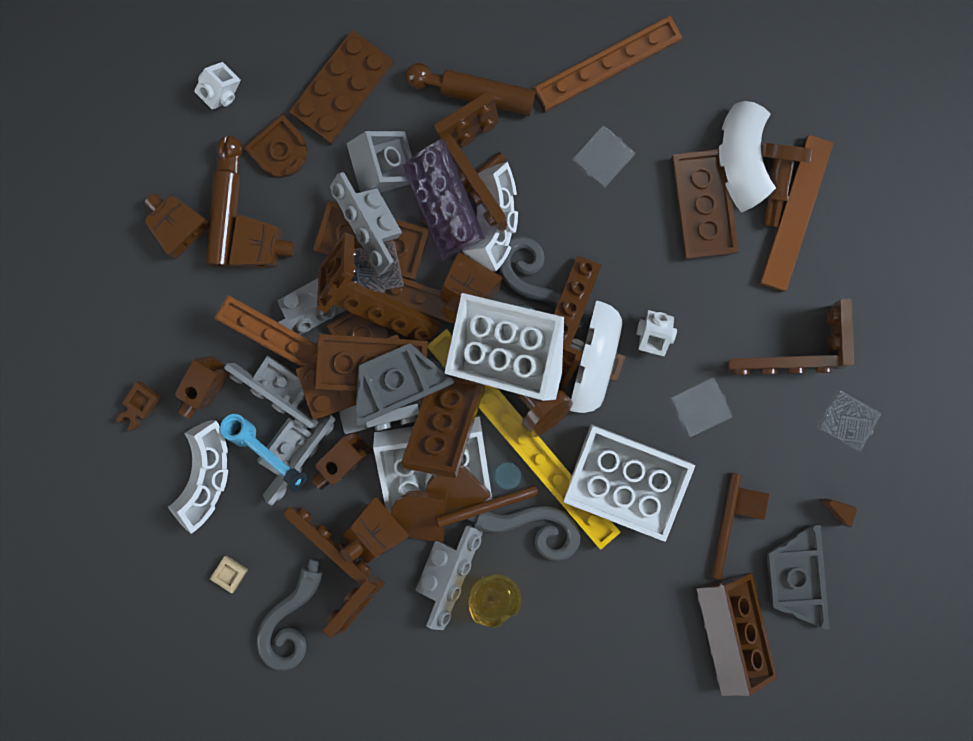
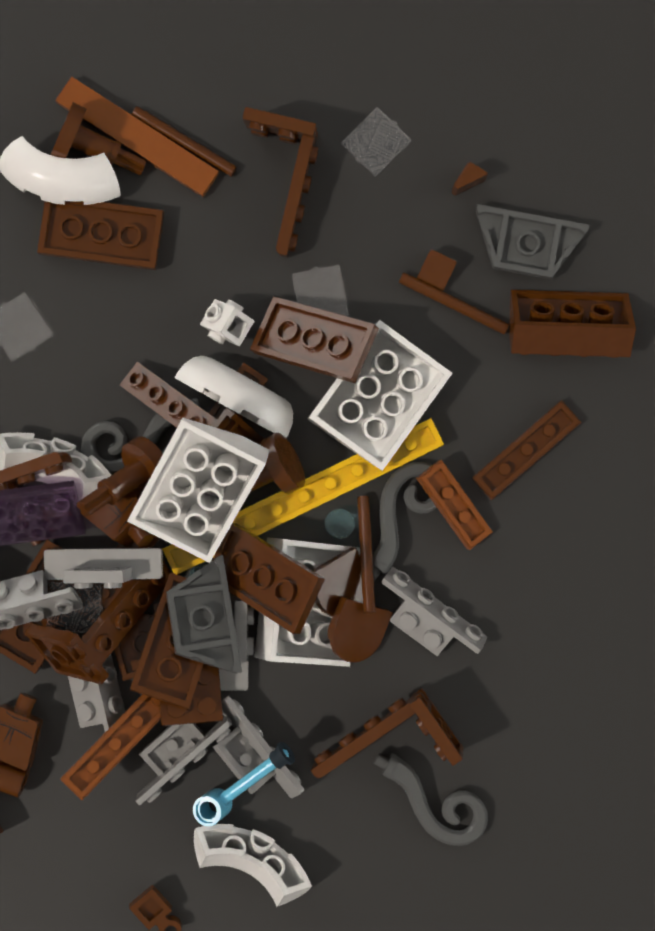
camera: 80 degrees left, 0 degrees up
(201, 385) = (152, 835): reddish brown torso -> none
(229, 574) = (367, 857): tan tile -> none
(341, 460) = (270, 692): reddish brown torso -> none
(372, 533) = (363, 686): reddish brown torso -> none
(418, 282) = (102, 565): none -> light grey bracket
(501, 607) = (476, 564): clear yellow helmet -> none
(516, 290) = (140, 460): none -> reddish brown piece
(551, 571) = (454, 504): none -> dark orange tile
(615, 623) = (526, 450): none -> reddish brown tile
(662, 413) = (314, 339): none -> reddish brown plate
(803, 255) = (184, 141): none -> reddish brown bar

